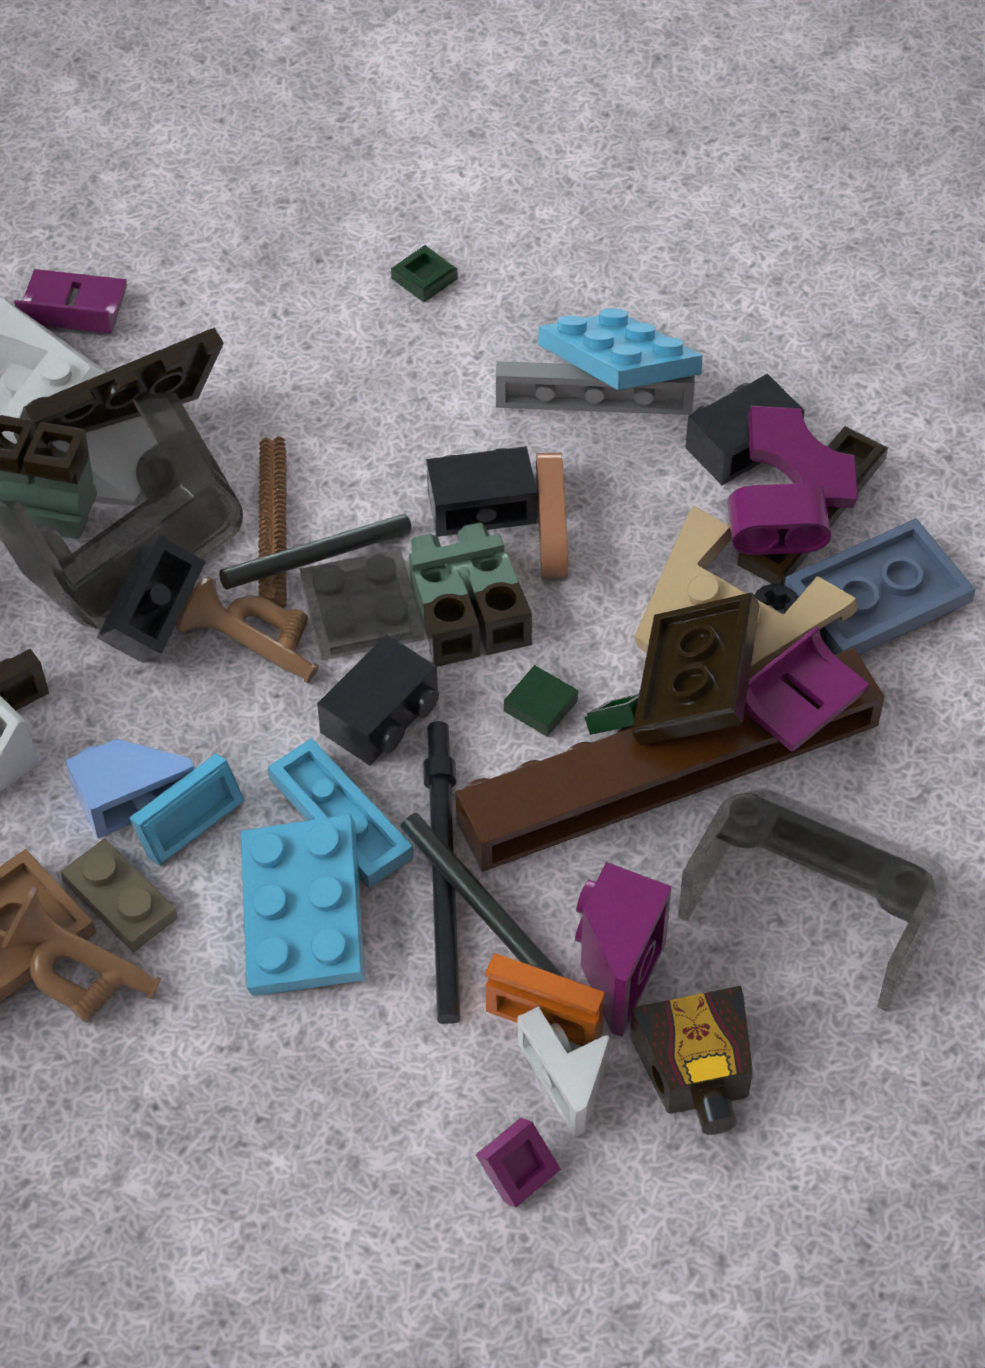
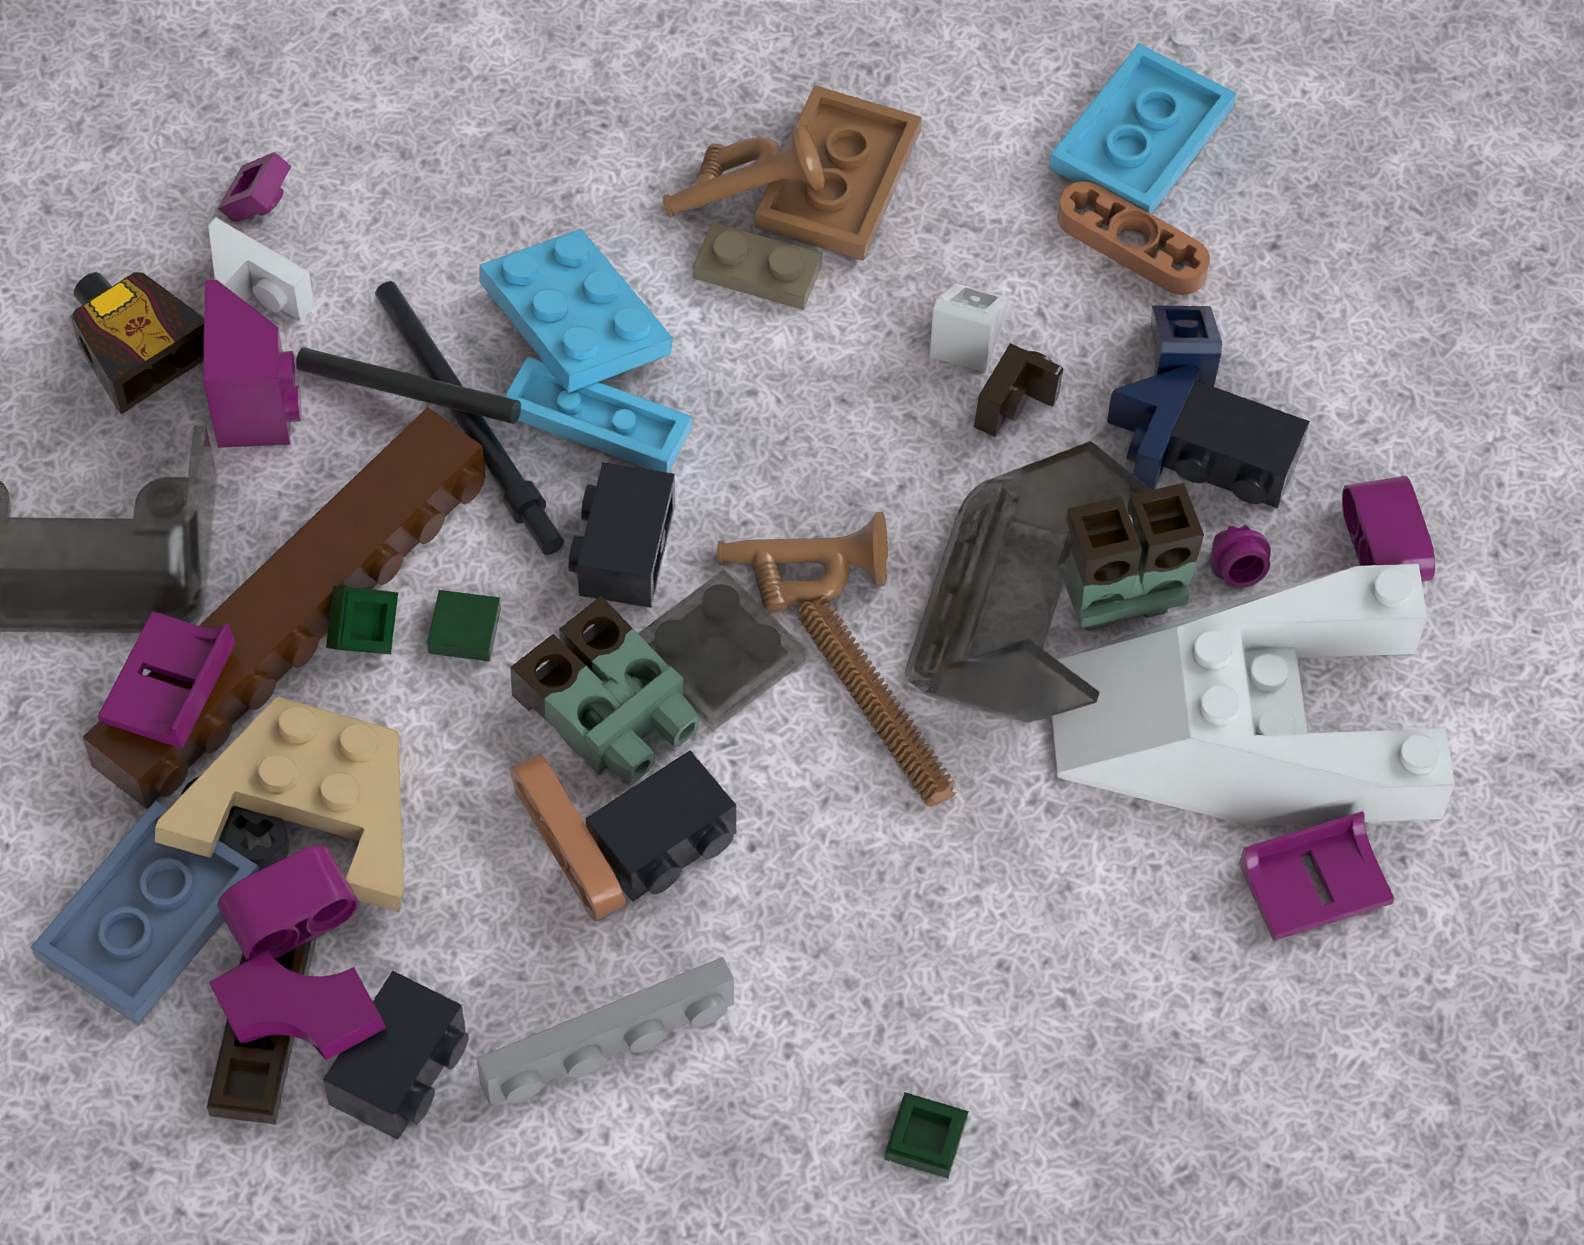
camera: 150 degrees right, 5 degrees up
(110, 396) = (1112, 721): dark brown wing -> none
(120, 780) = (818, 347): light blue slope -> none
(151, 599) = (918, 507): black brick -> none
(187, 809) = (741, 348): medium azure tile -> none
(314, 551) = (795, 667): pearl dark grey bar -> none
(519, 987) = (304, 304): orange plate -> none
(619, 349) = (593, 1064): medium azure plate -> none
(697, 669) = (289, 647): dark brown tile -> none

